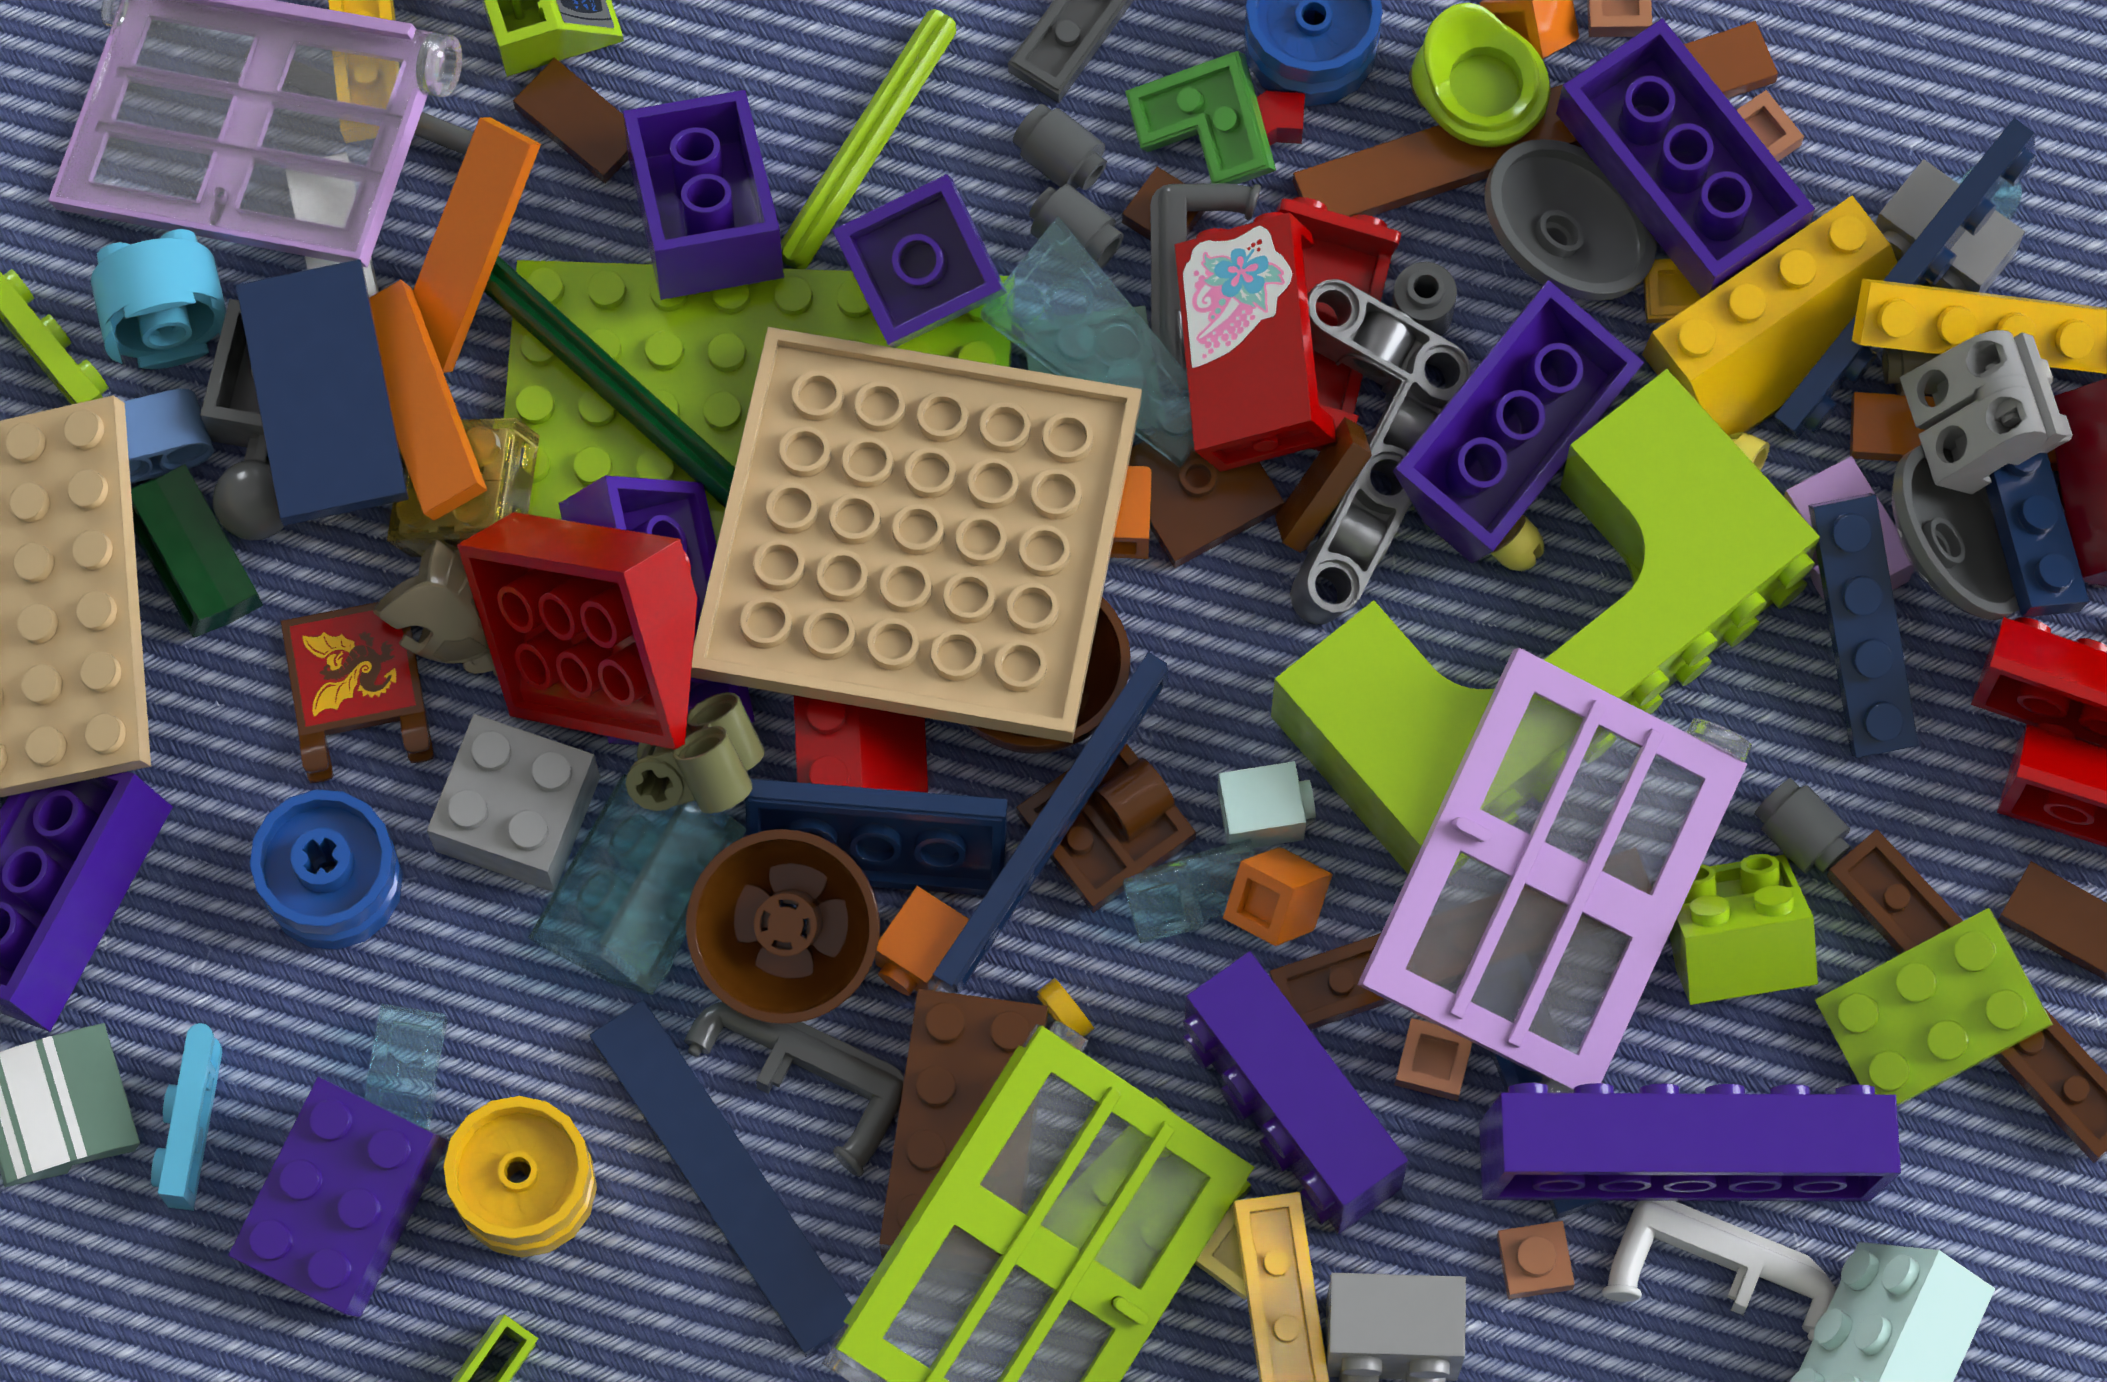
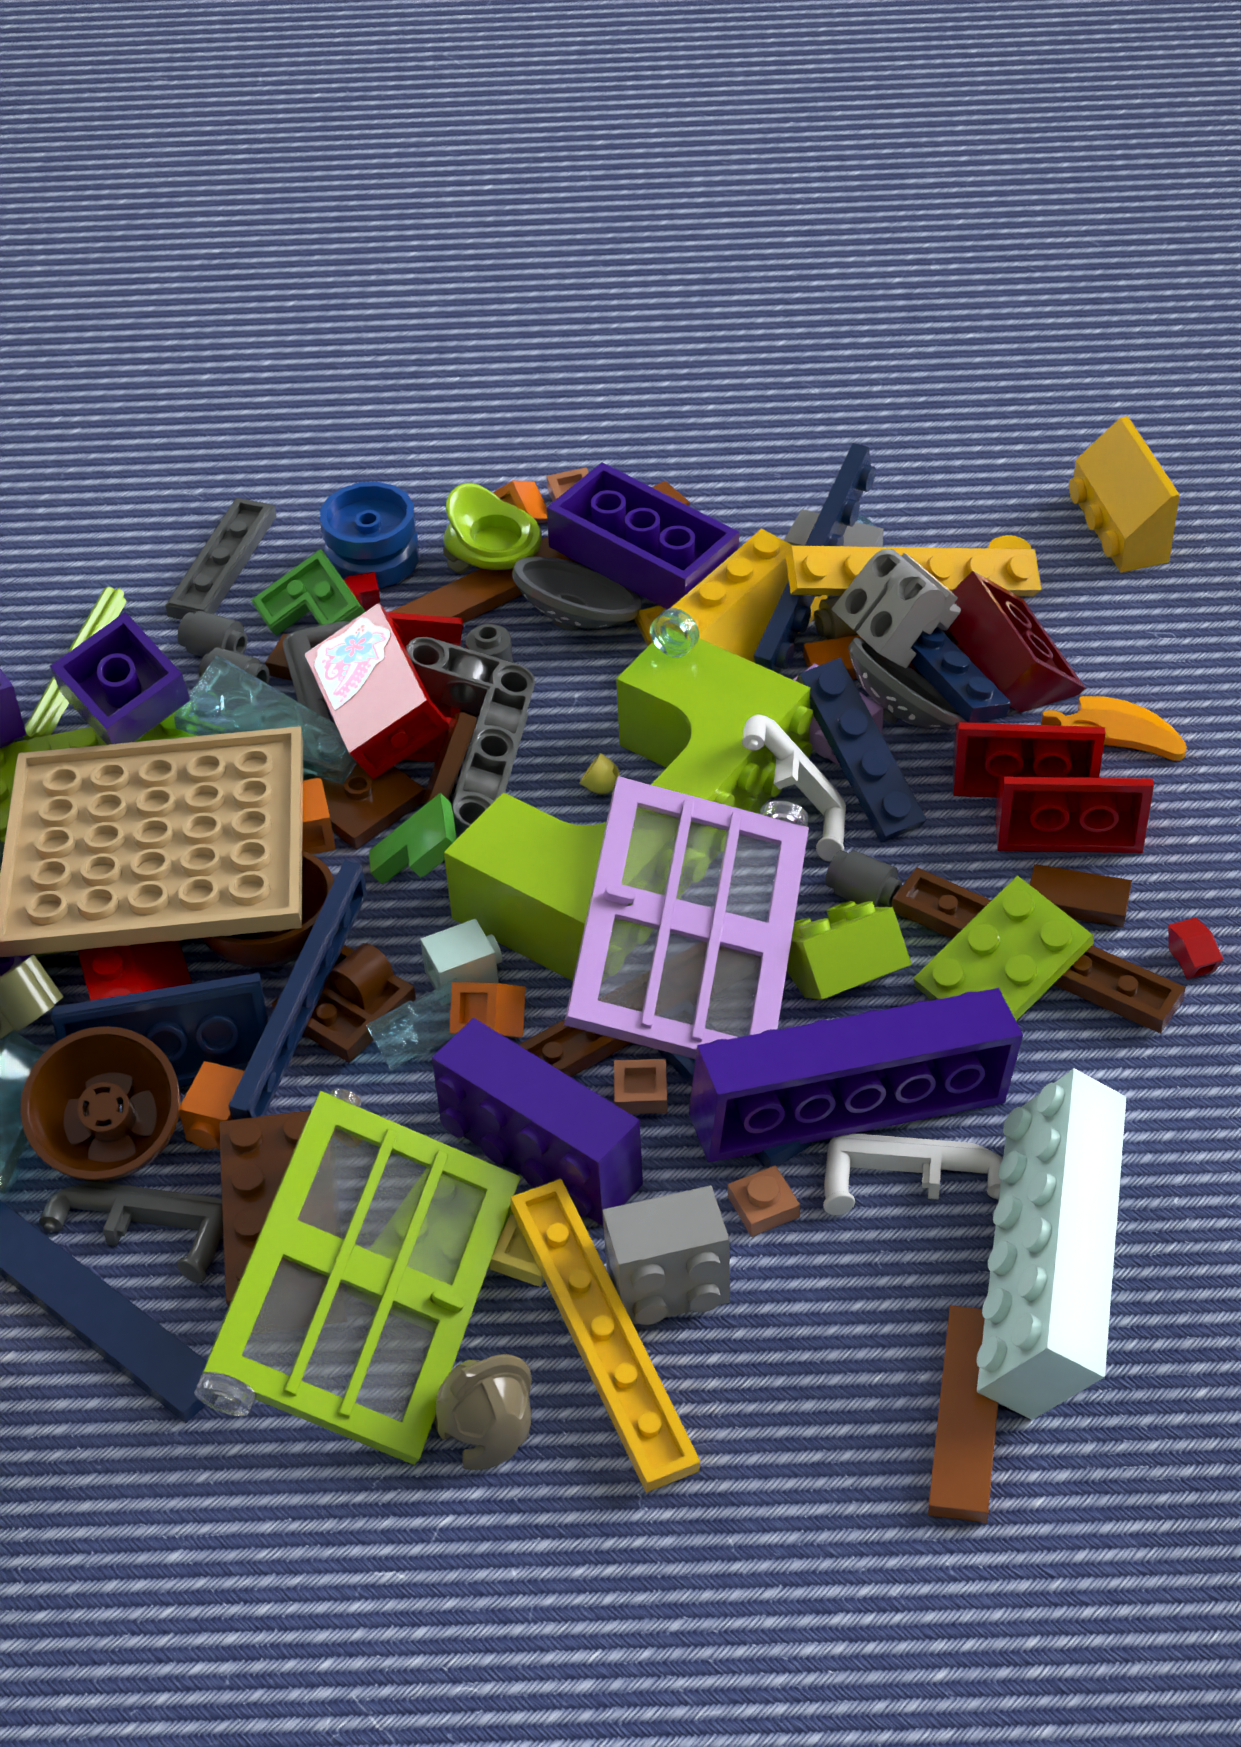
camera: 15 degrees left, 25 degrees down
(1255, 605) = (416, 842): none -> bright green tile
(1514, 422) = (569, 698): dark purple slope -> none
(1665, 403) = (674, 632): none -> clear light blue tile
(1769, 645) = (795, 768): none -> white piece

